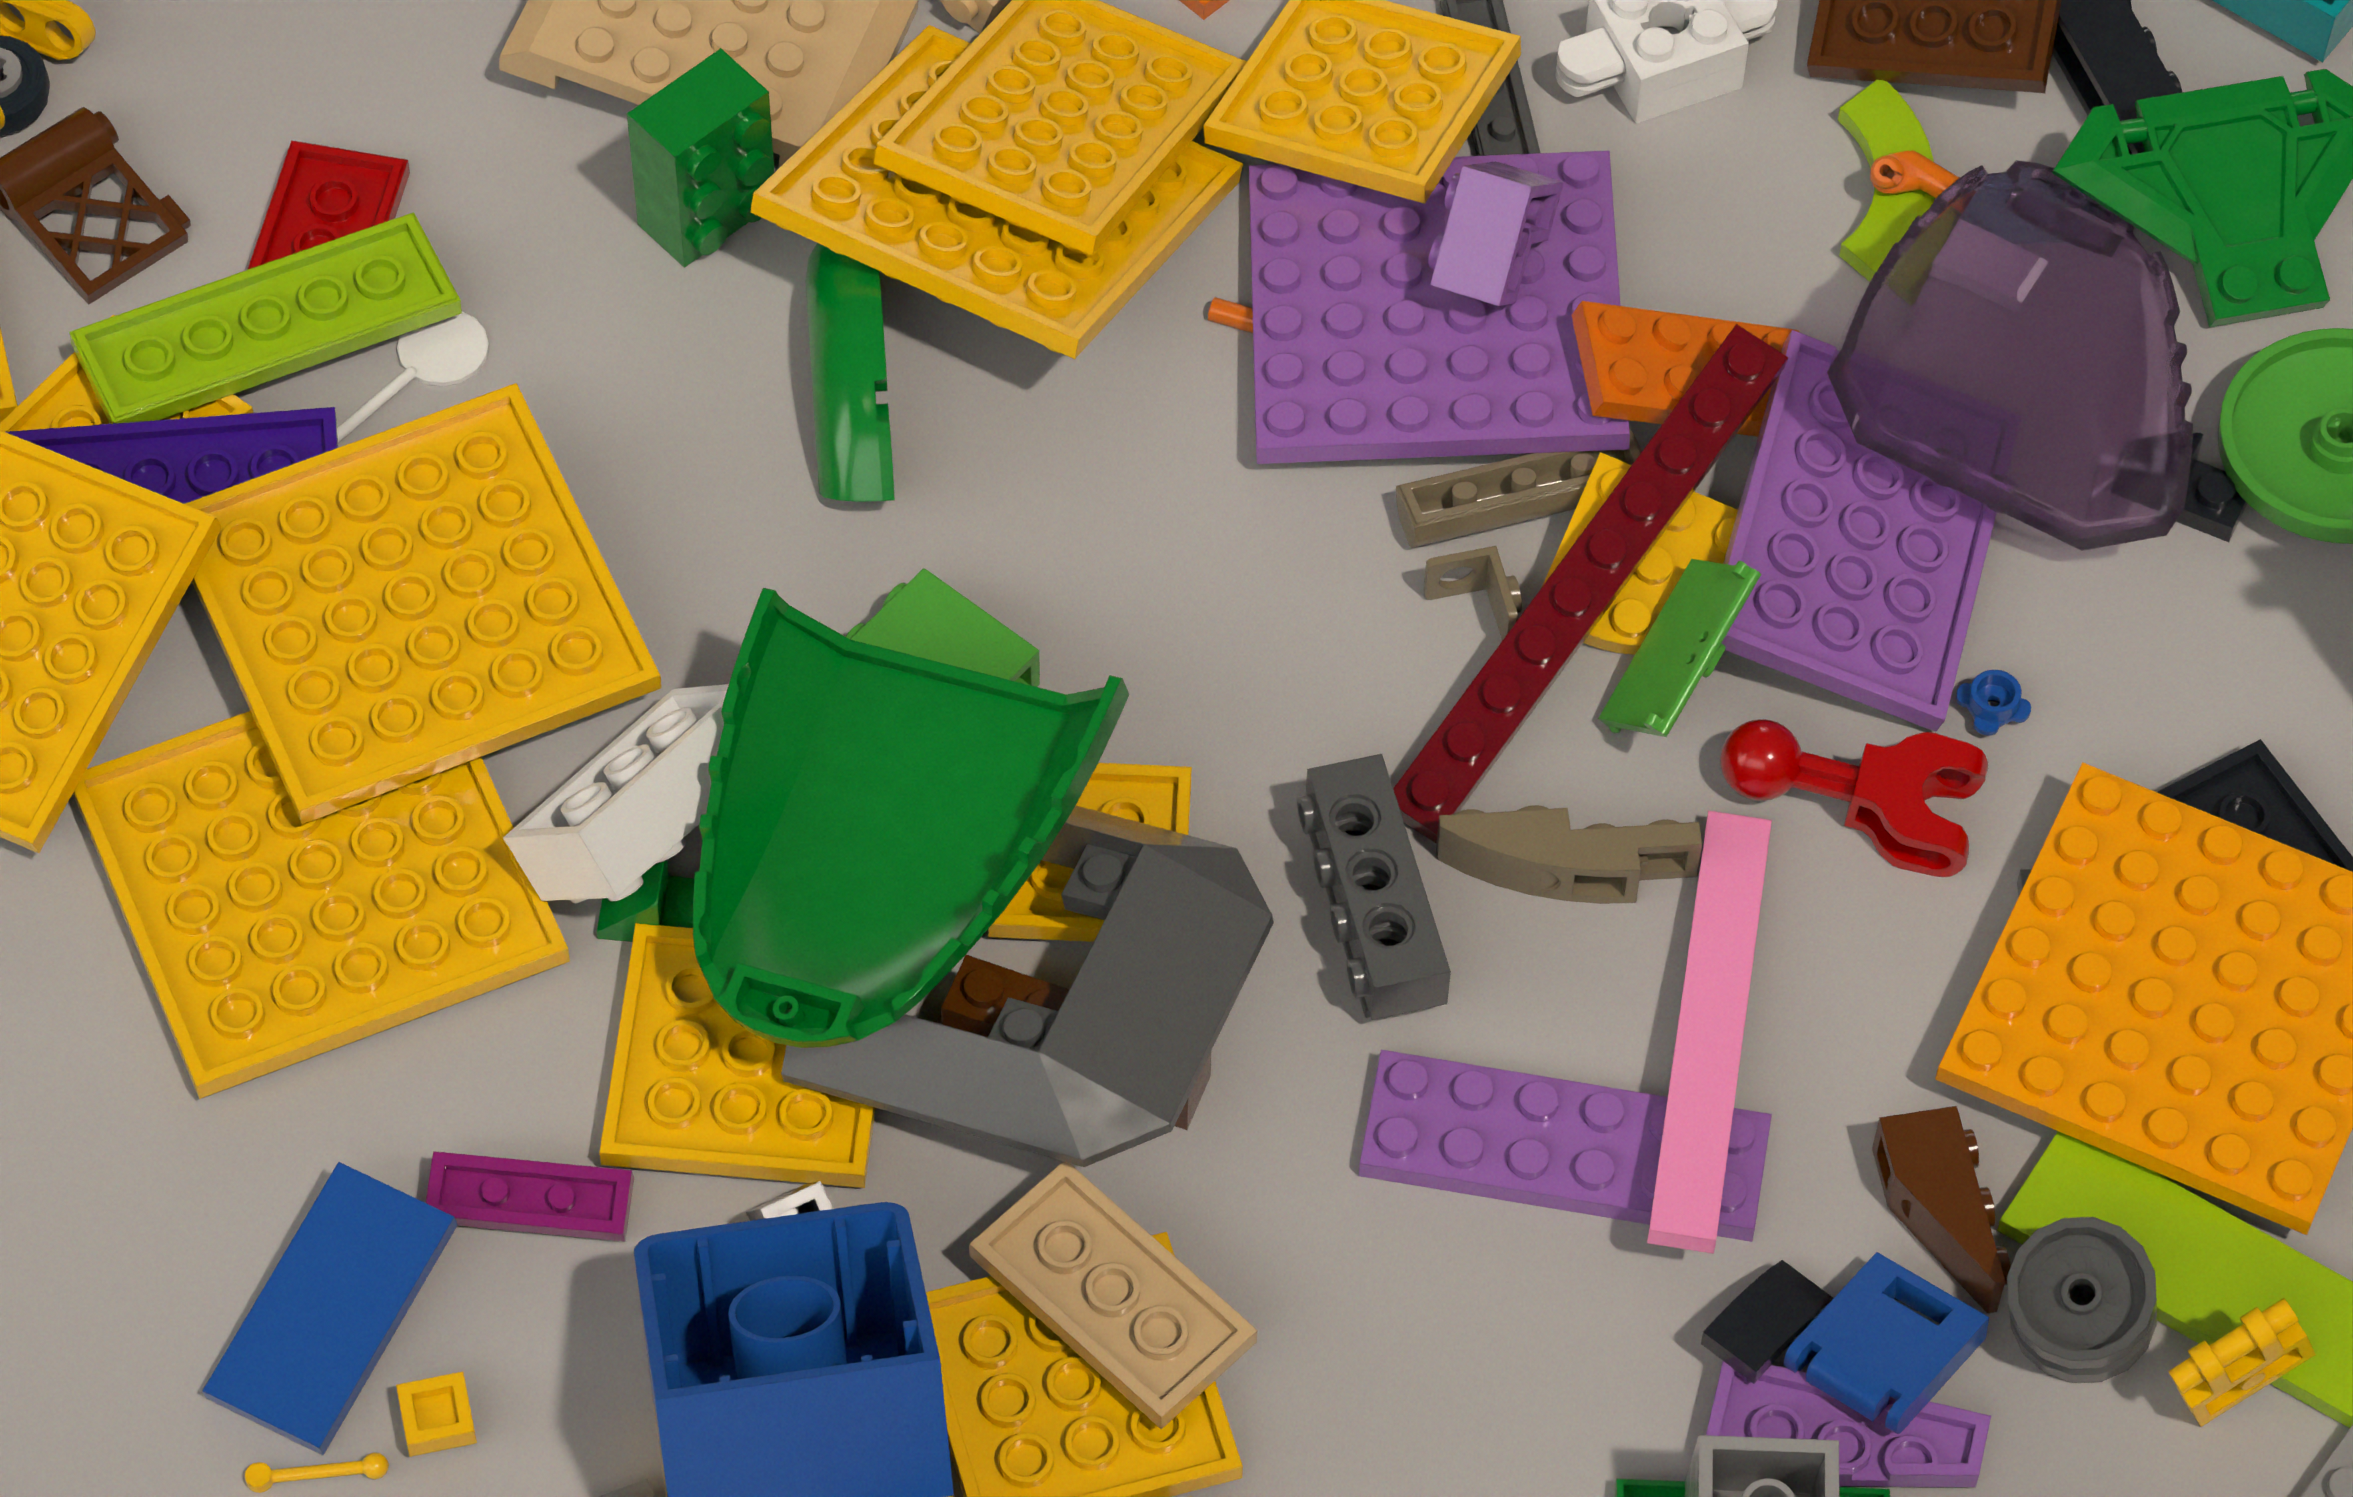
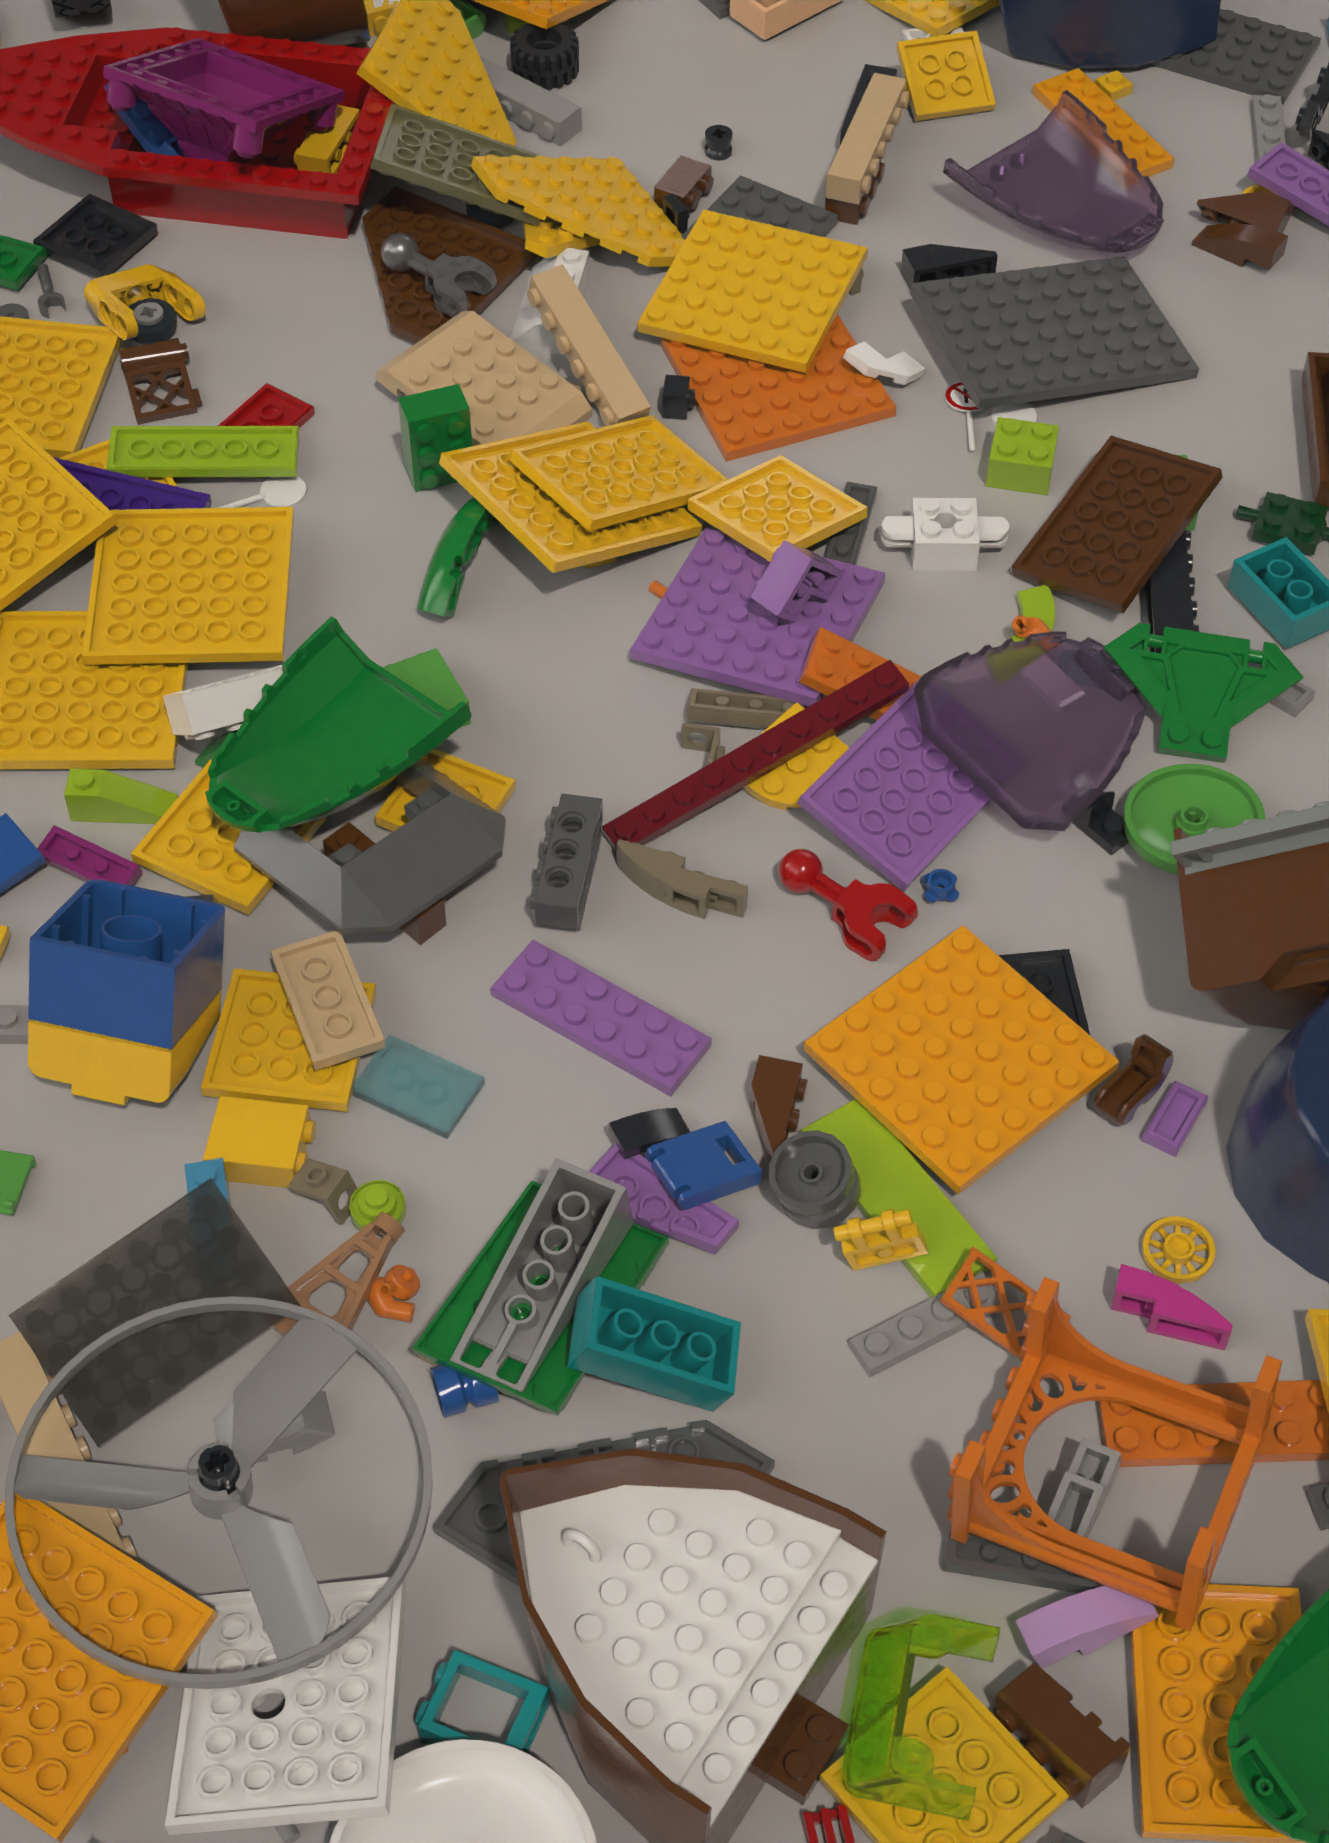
camera: 25 degrees right, 5 degrees down
(509, 1059) = (113, 798): none -> lime slope
(1335, 1388) = (418, 1086): none -> clear light blue tile
(1680, 647) = (783, 802): bright green door -> none
(1710, 1033) = (698, 988): bright pink tile -> none

